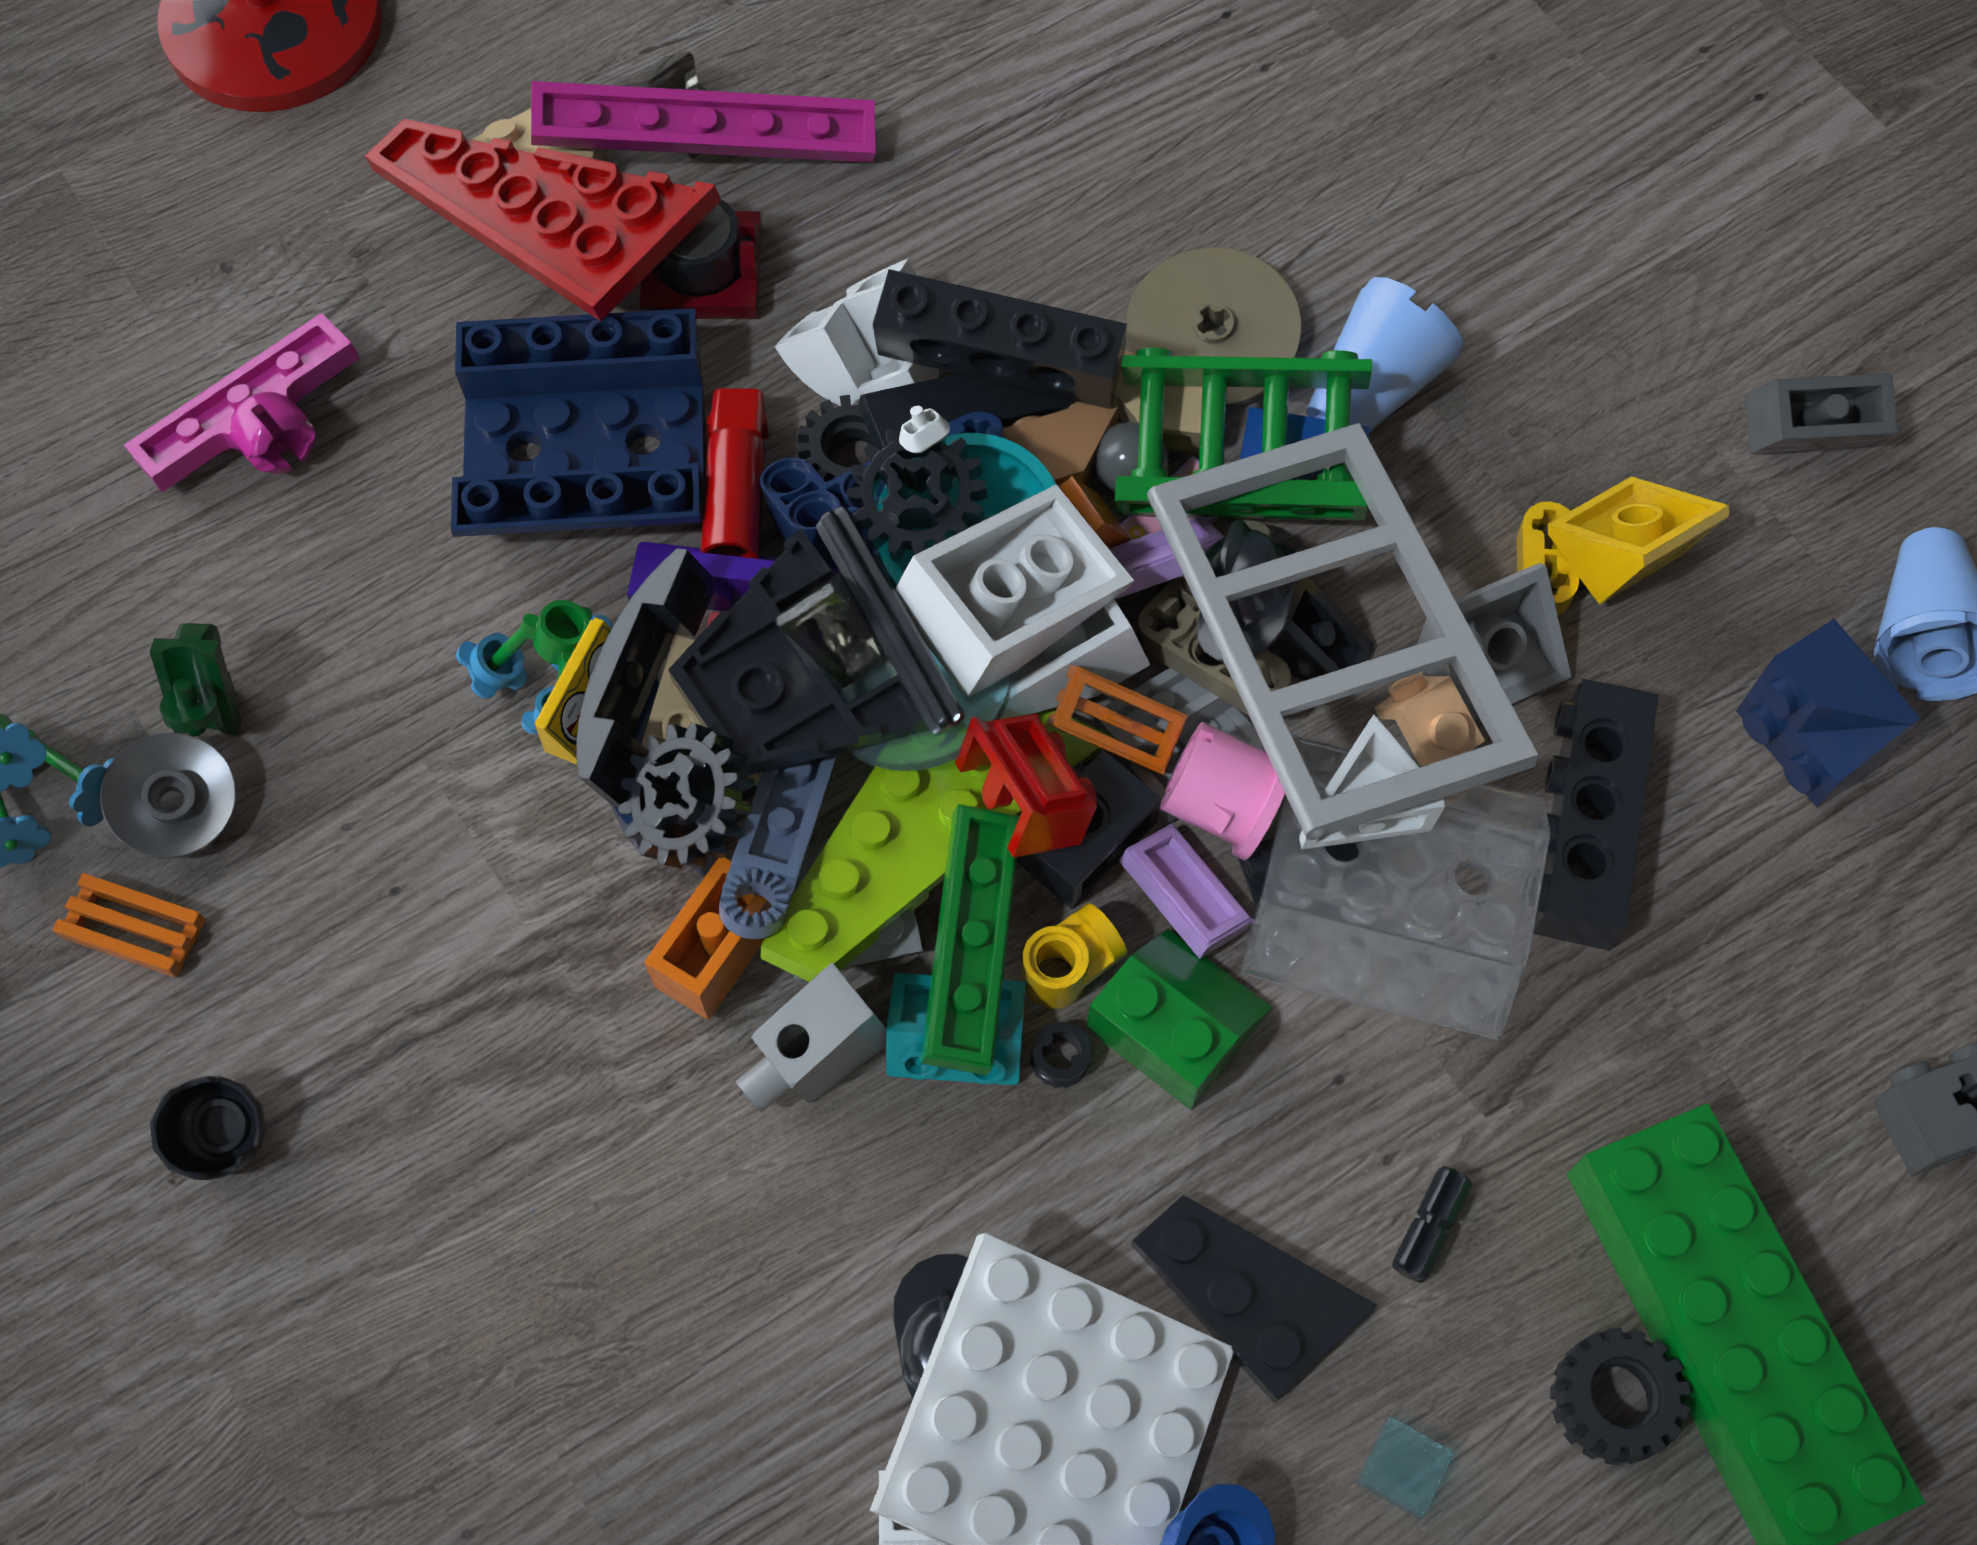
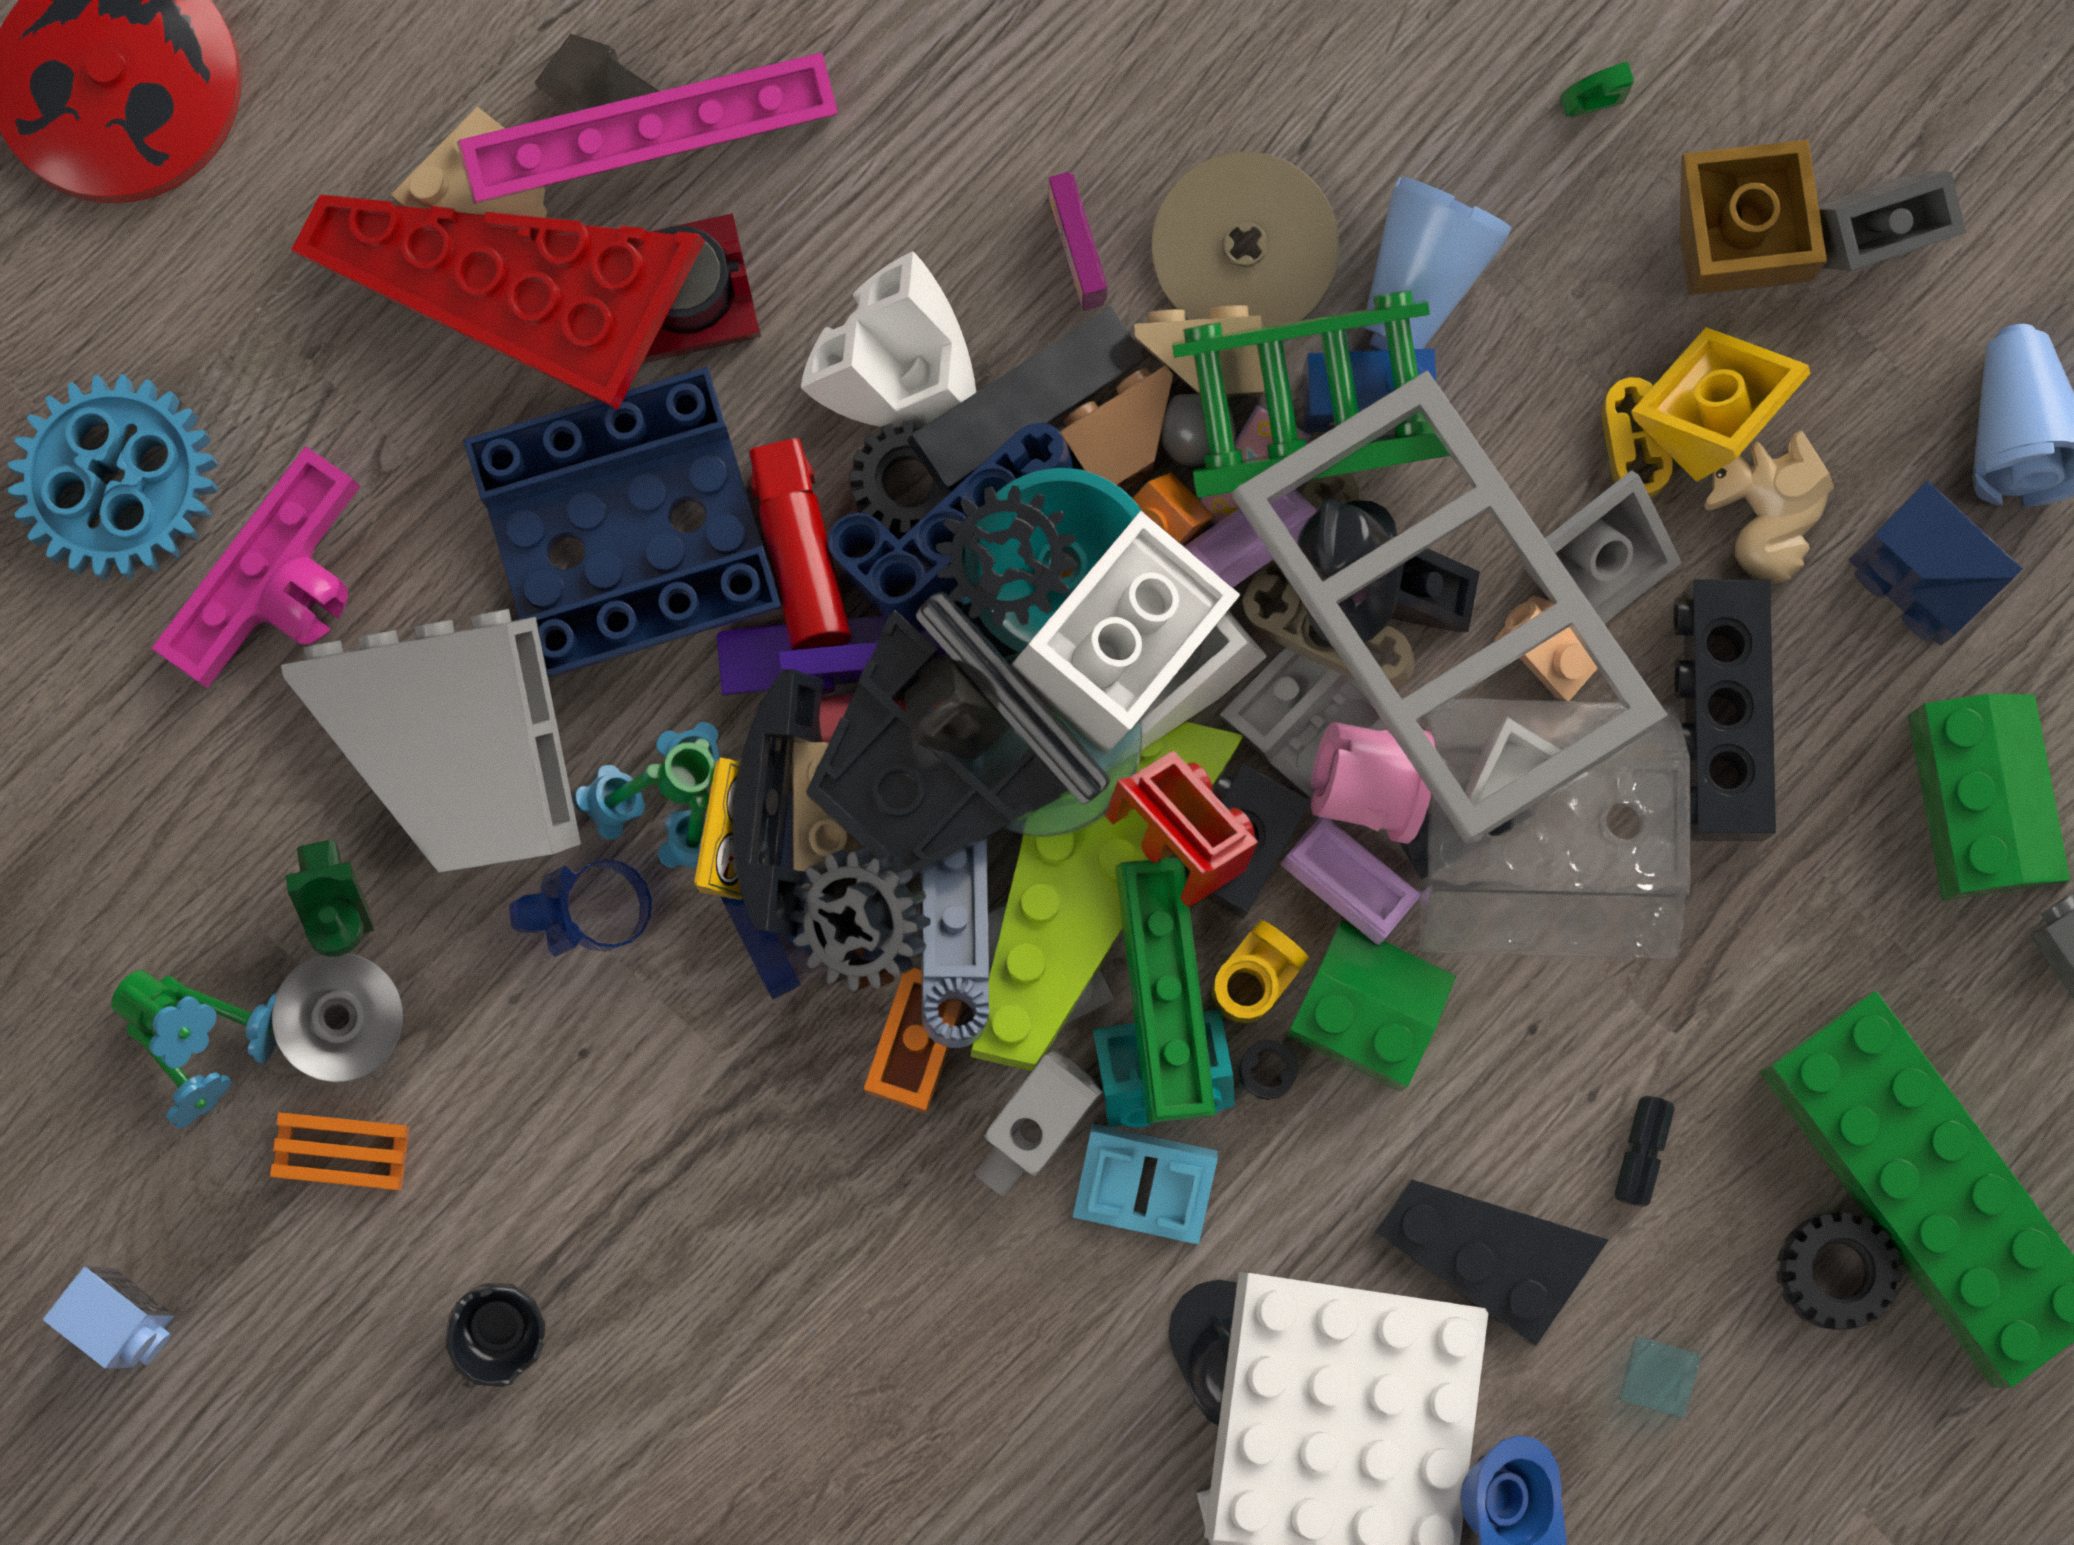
camera: 15 degrees left, 15 degrees up
(145, 305) = (59, 459): none -> dark azure gear
(361, 565) = (450, 735): none -> light grey slope
(386, 742) = (550, 911): none -> clear blue piece
(594, 826) = (764, 951): none -> clear blue beam
(923, 430) = (1002, 500): white rock -> none
(937, 1154) = (1177, 1191): none -> medium azure piece
(999, 338) = (1040, 343): black brick -> none
(1060, 268) = (1077, 240): none -> magenta tile
(1070, 699) = (1204, 725): orange tile -> none
(1566, 266) = (1598, 91): none -> green tile
(1683, 635) = (1788, 502): none -> tan animal
(1690, 387) = (1749, 218): none -> pearl gold slope
(1847, 950) = (1988, 795): none -> green slope

